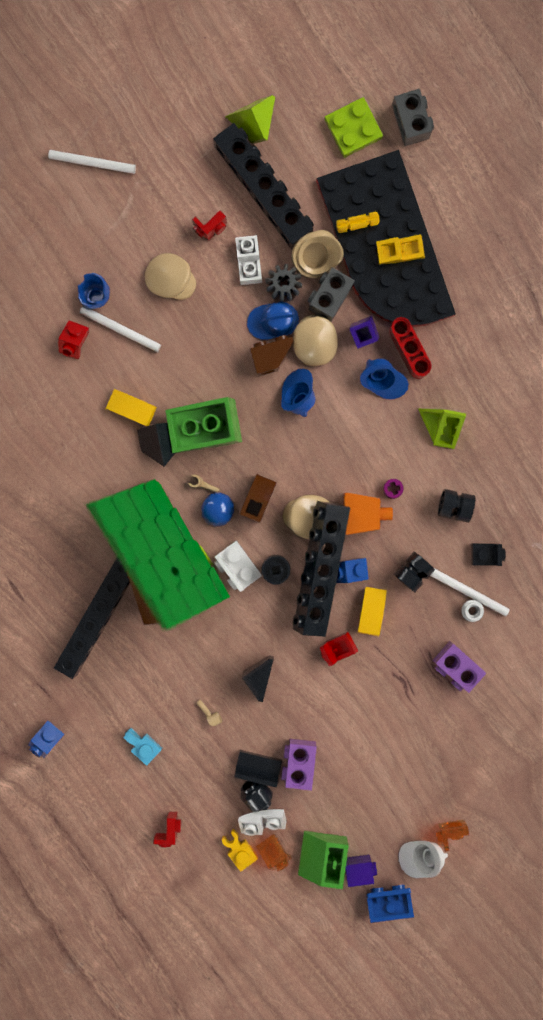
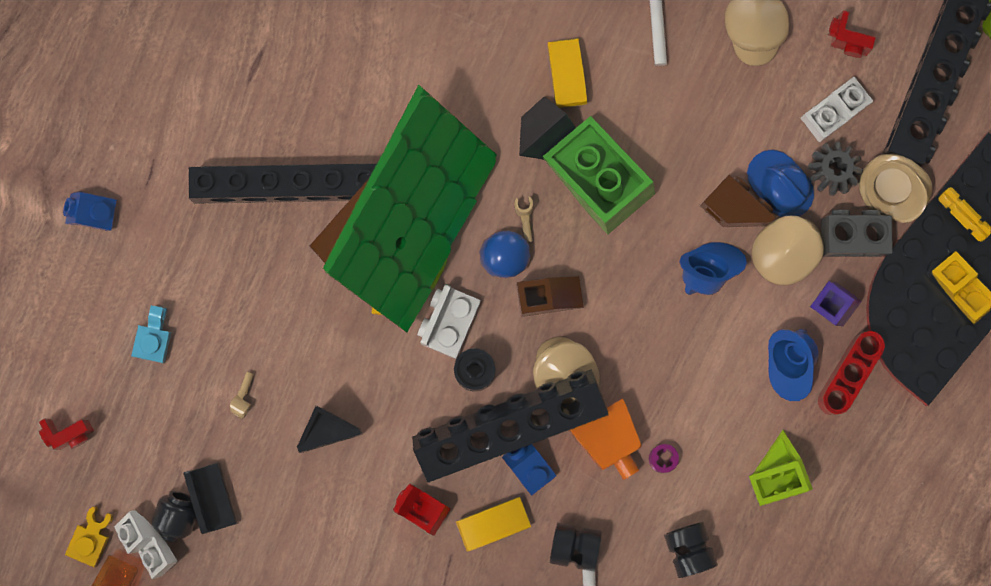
camera: 50 degrees right, 5 degrees down
(304, 764) = (249, 554): medium lavender brick -> none

